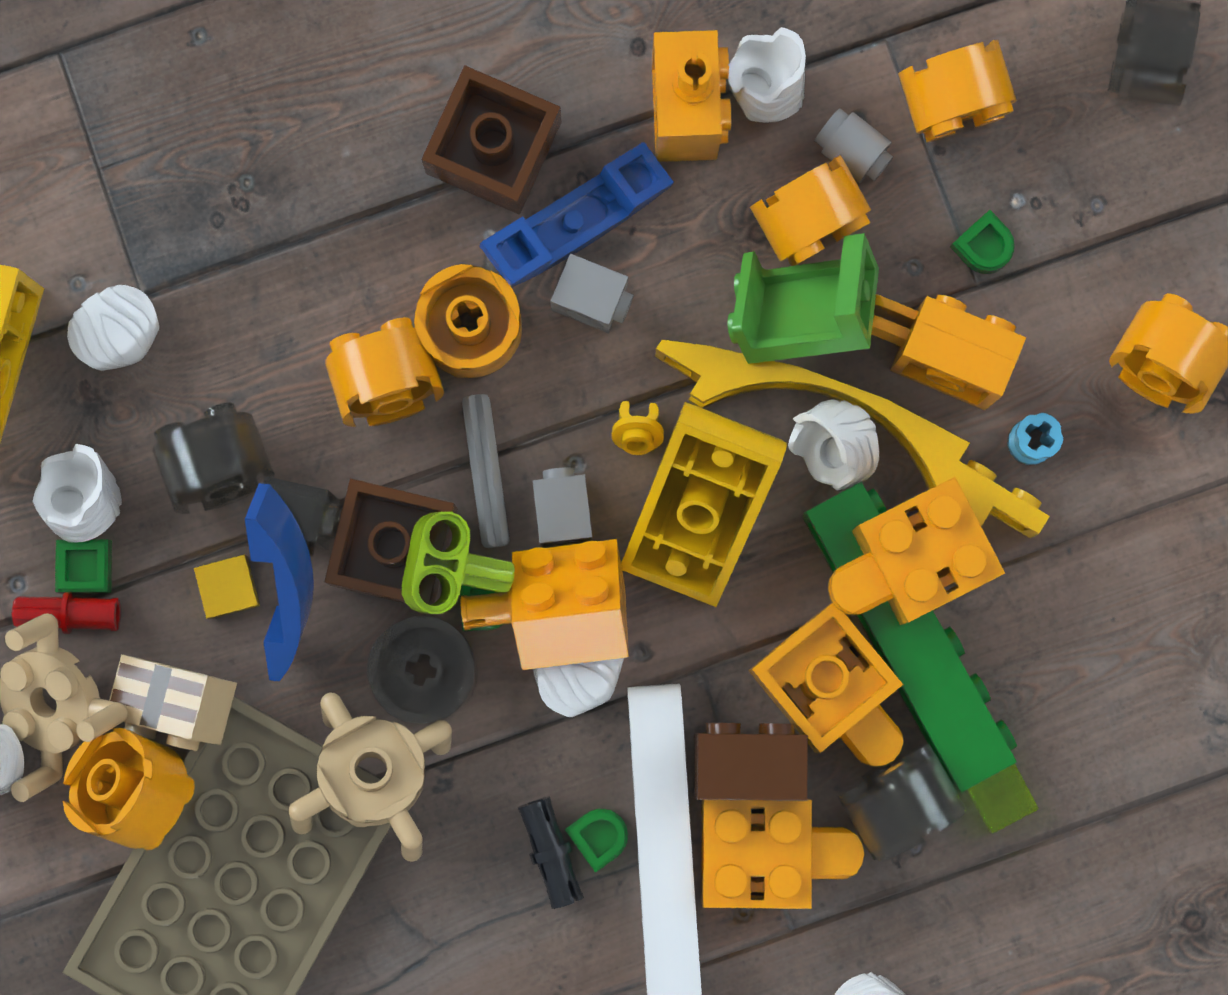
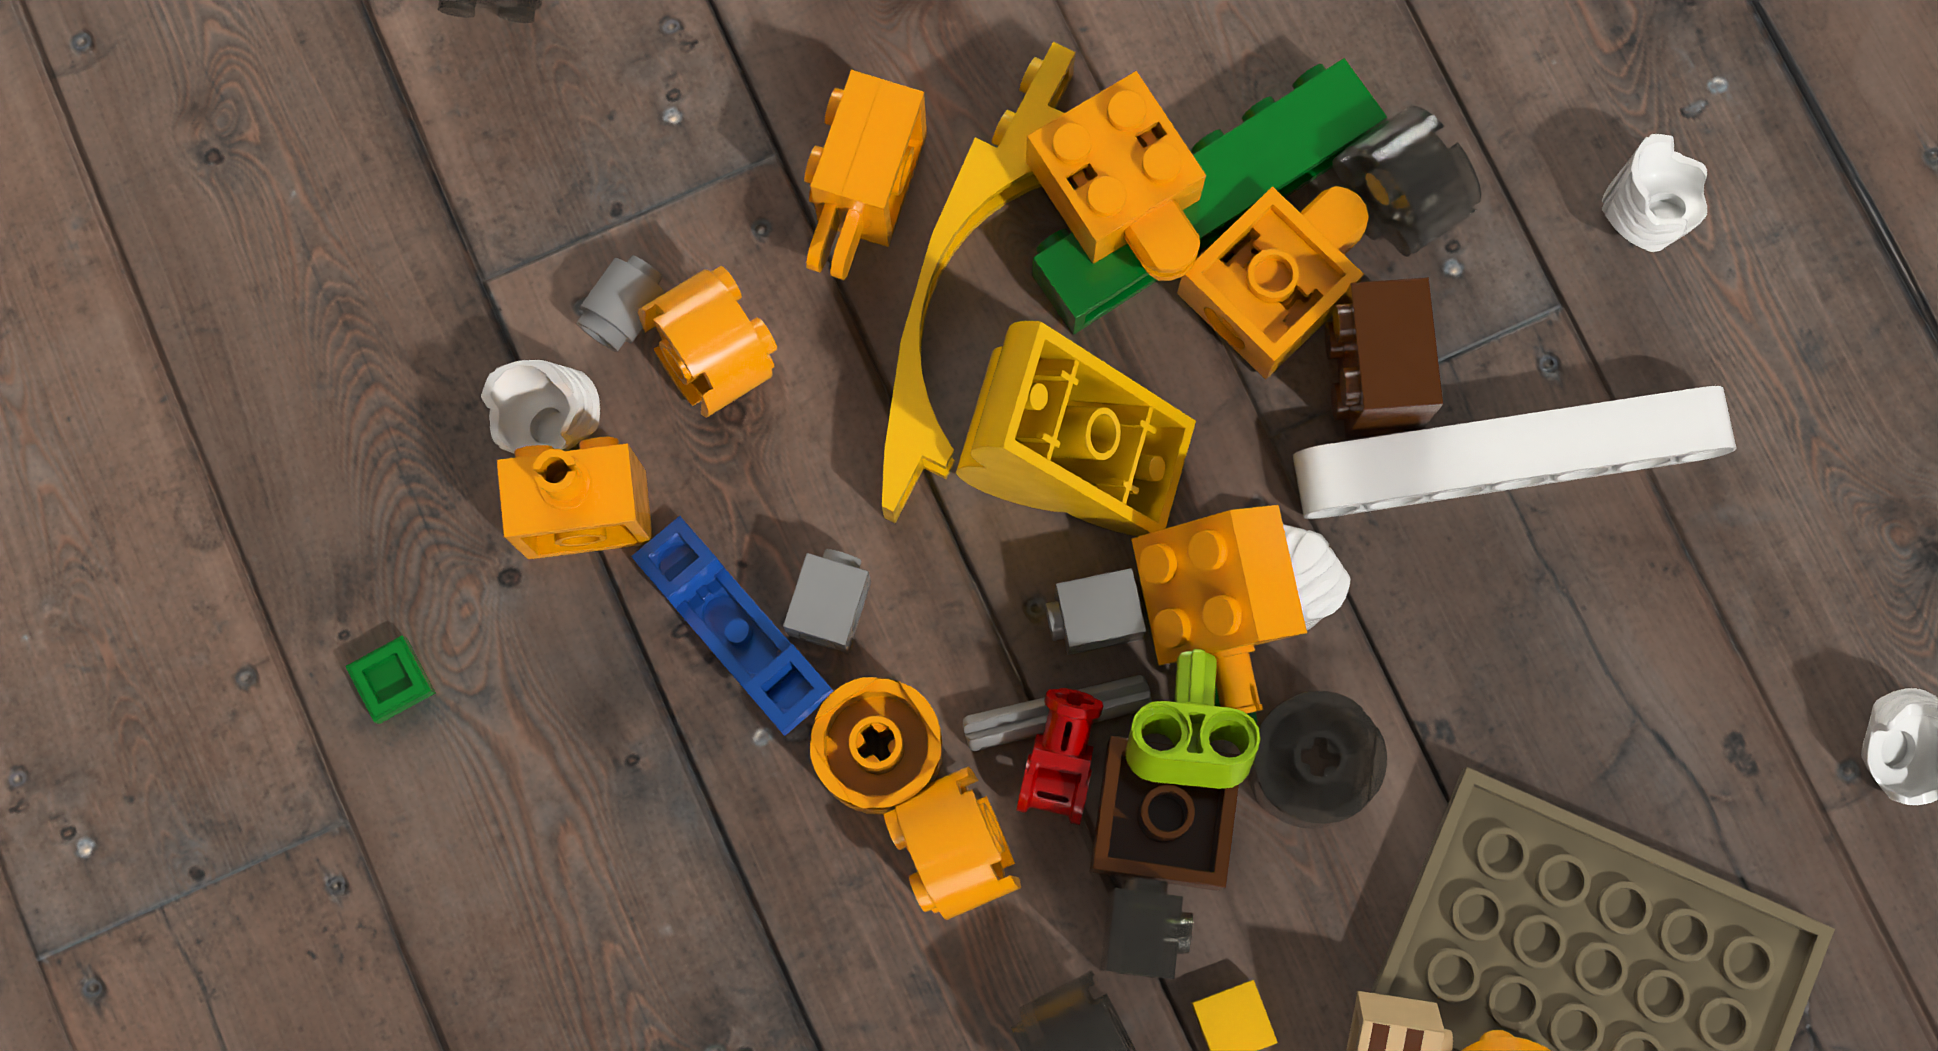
camera: 90 degrees left, 5 degrees down
(278, 540) = (1196, 936): blue slope -> none
(377, 802) = (1484, 832): tan plate -> none
(441, 467) = (1059, 766): none -> red connector
(492, 139) = (644, 737): reddish brown brick -> none
(550, 852) = (1511, 590): black pin -> none
(599, 836) = (1483, 536): green tile -> none
(637, 433) = (996, 531): yellow plate -> none
(769, 854) = (1491, 331): light orange brick -> none
(805, 306) = (829, 335): bright green panel -> none
(836, 443) = (987, 291): white hair -> none
(958, 88) = (547, 181): light orange brick -> none
(985, 245) = (729, 146): green tile -> none
(1003, 799) = (1387, 76): clear neon green tile -> none
(1019, 439) = (952, 55): medium azure bush -> none

